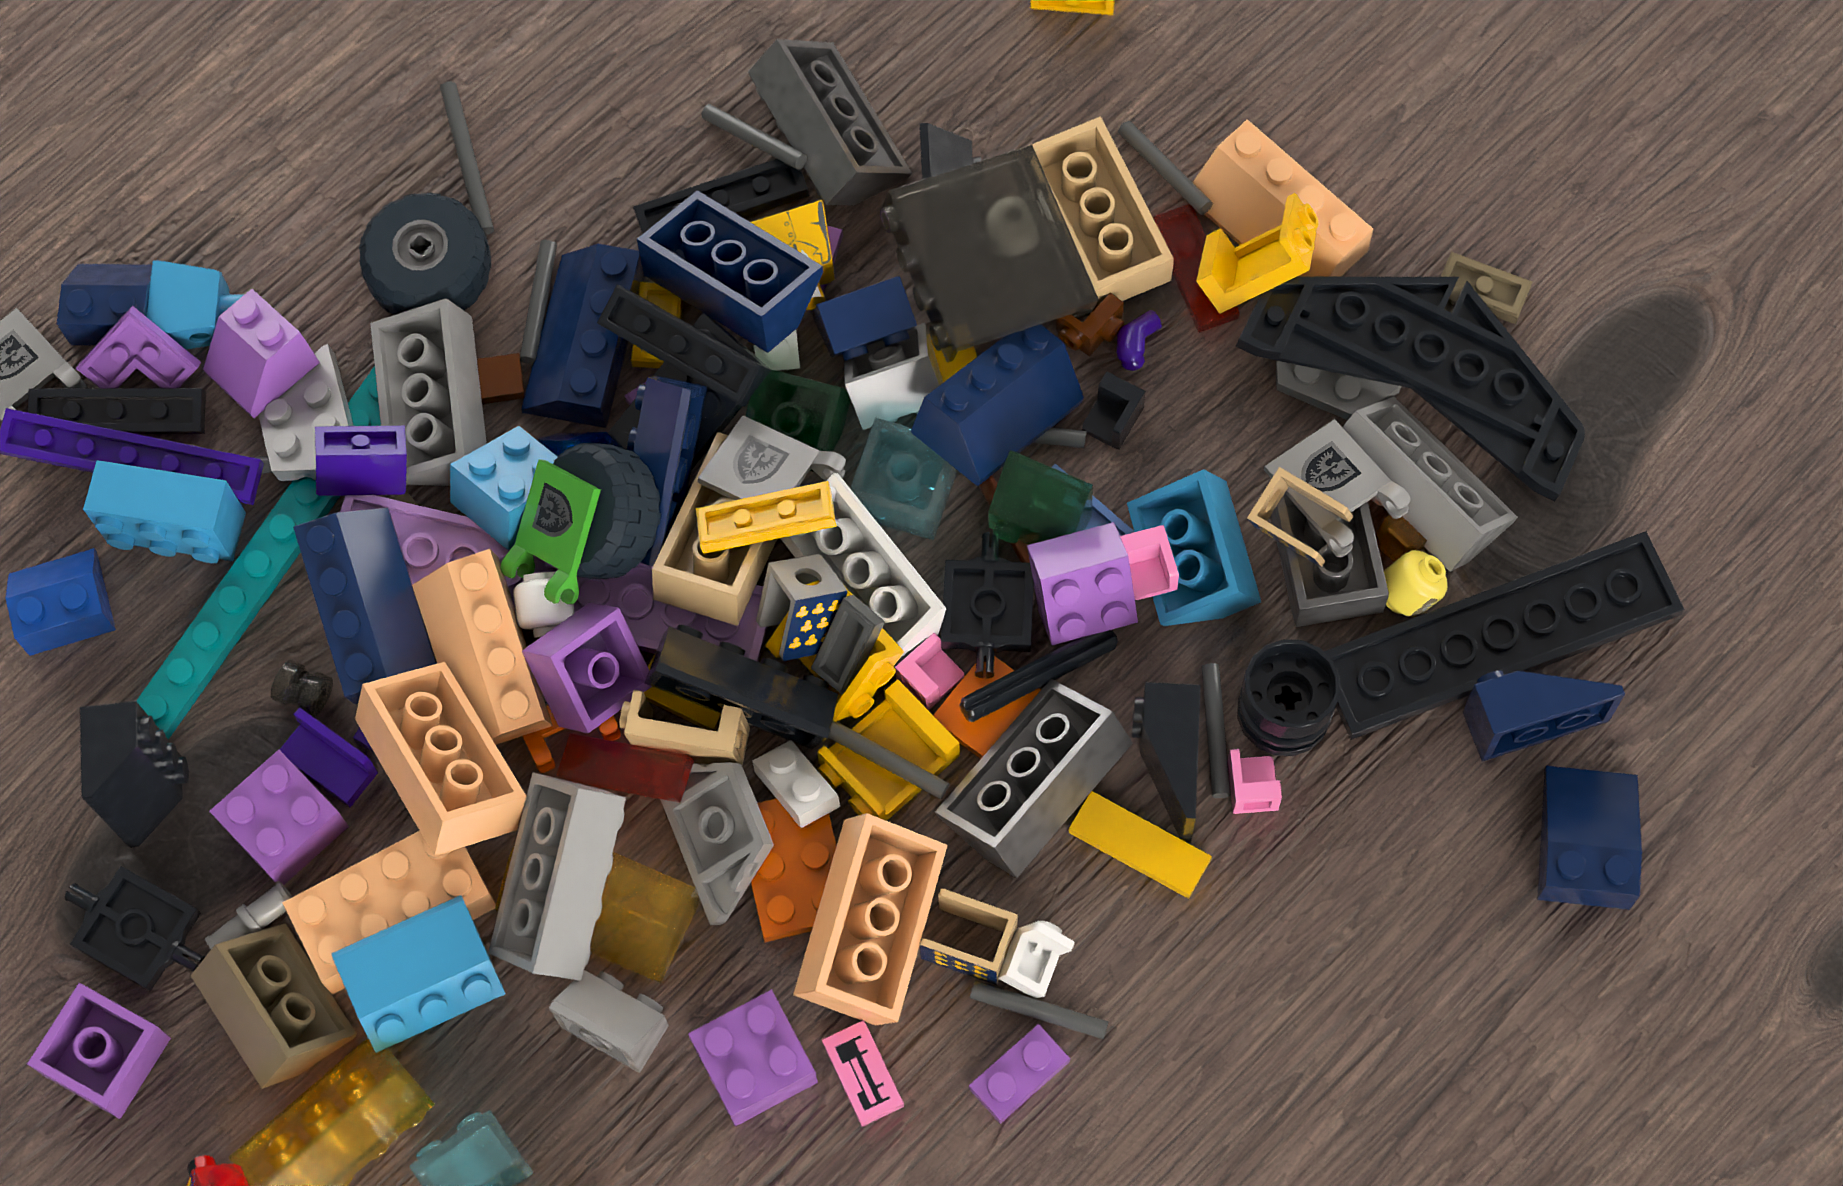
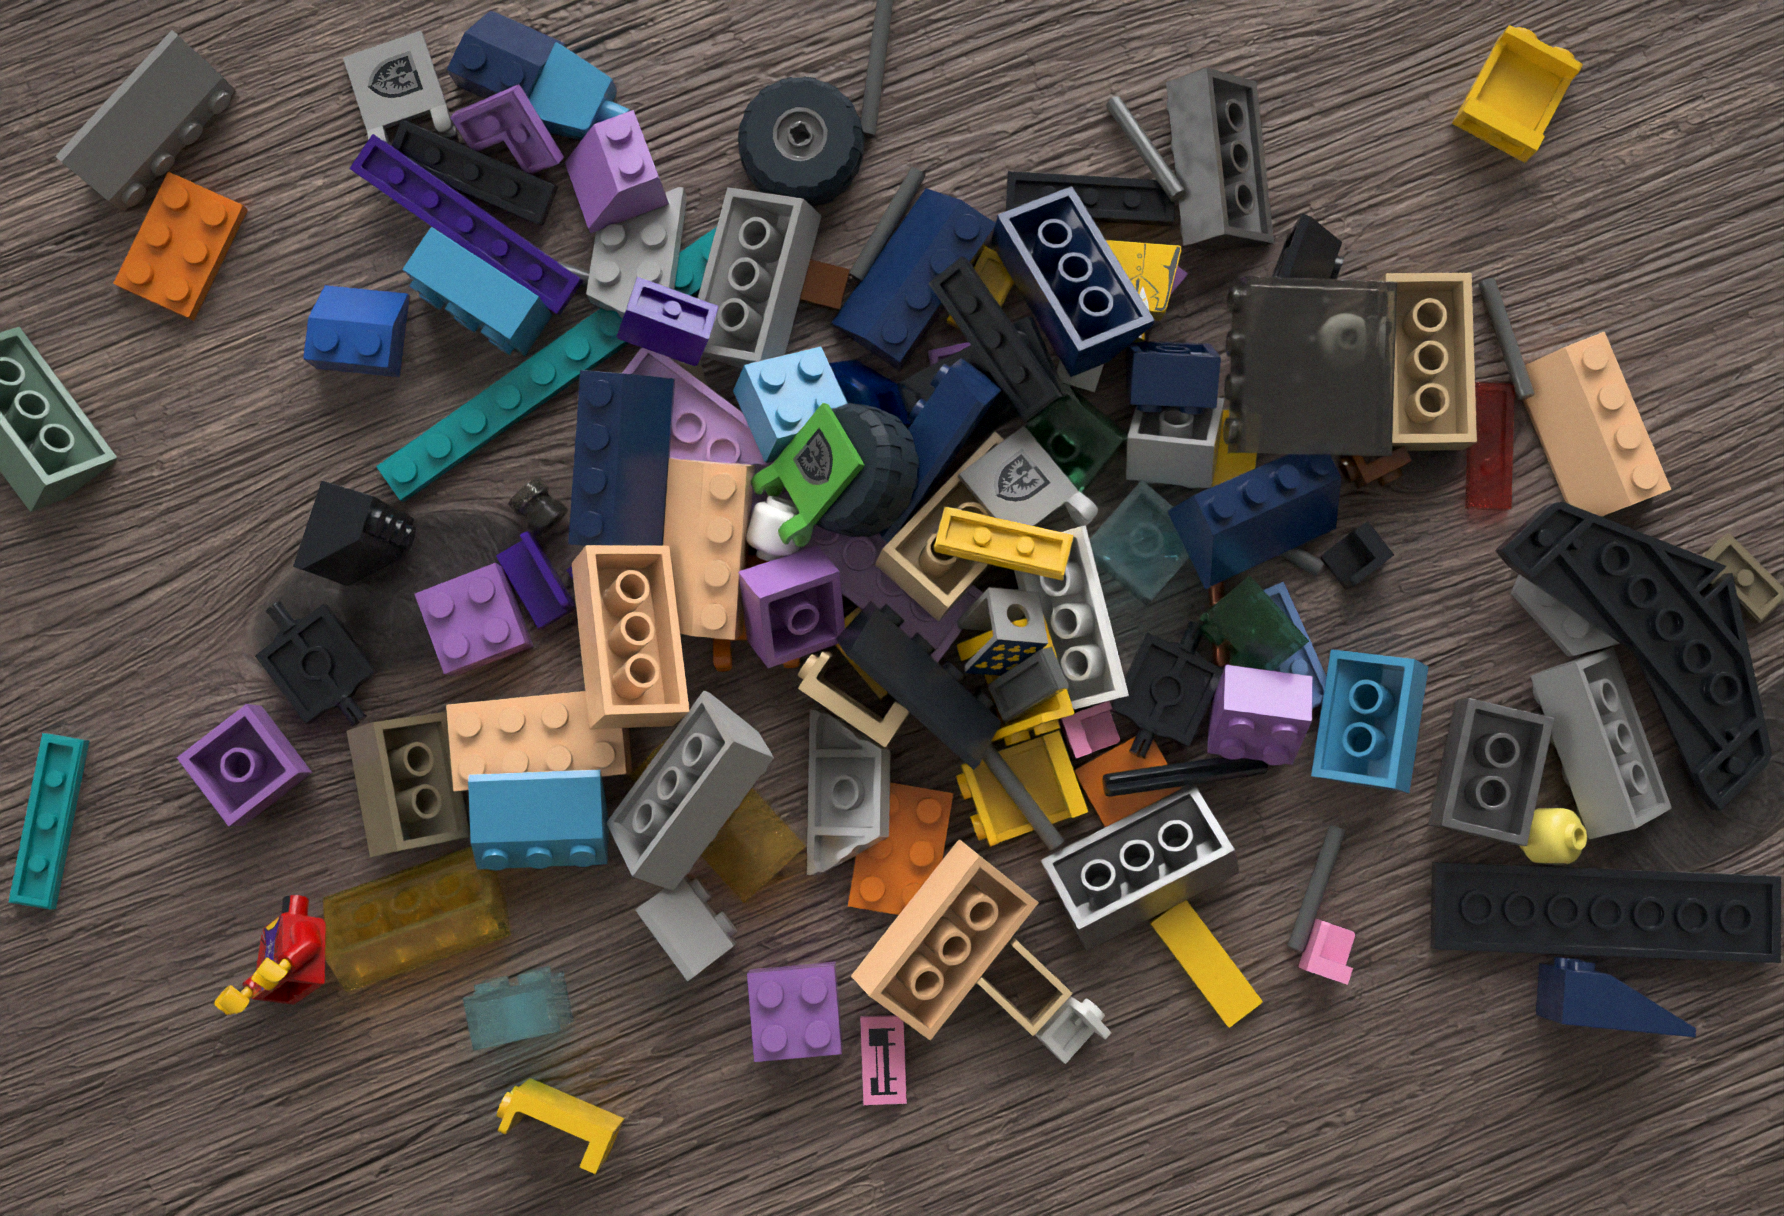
camera: 20 degrees right, 15 degrees up
(252, 917) = (417, 699): light grey pin -> none
(625, 767) = (790, 707): clear red tile -> none
(796, 783) = (931, 783): white plate -> none
(1019, 1073) = (1015, 1117): medium lavender plate -> none
(1039, 1009) = (1056, 1069): dark grey bar -> none
(1132, 339) = (1403, 493): dark purple arm -> none
(1151, 562) = (1330, 725): bright pink panel -> none
(1169, 740) = (1272, 899): black slope -> none
(1242, 272) = (1555, 478): yellow panel -> none
(1272, 496) = (1454, 756): tan piece -> none
(1303, 680) = (1418, 894): black wheel -> none
(1343, 472) = (1525, 717): light grey flag -> none
(1398, 537) = (1558, 788): clear orange tile -> none
(1590, 838) = (1600, 1128): dark blue slope -> none

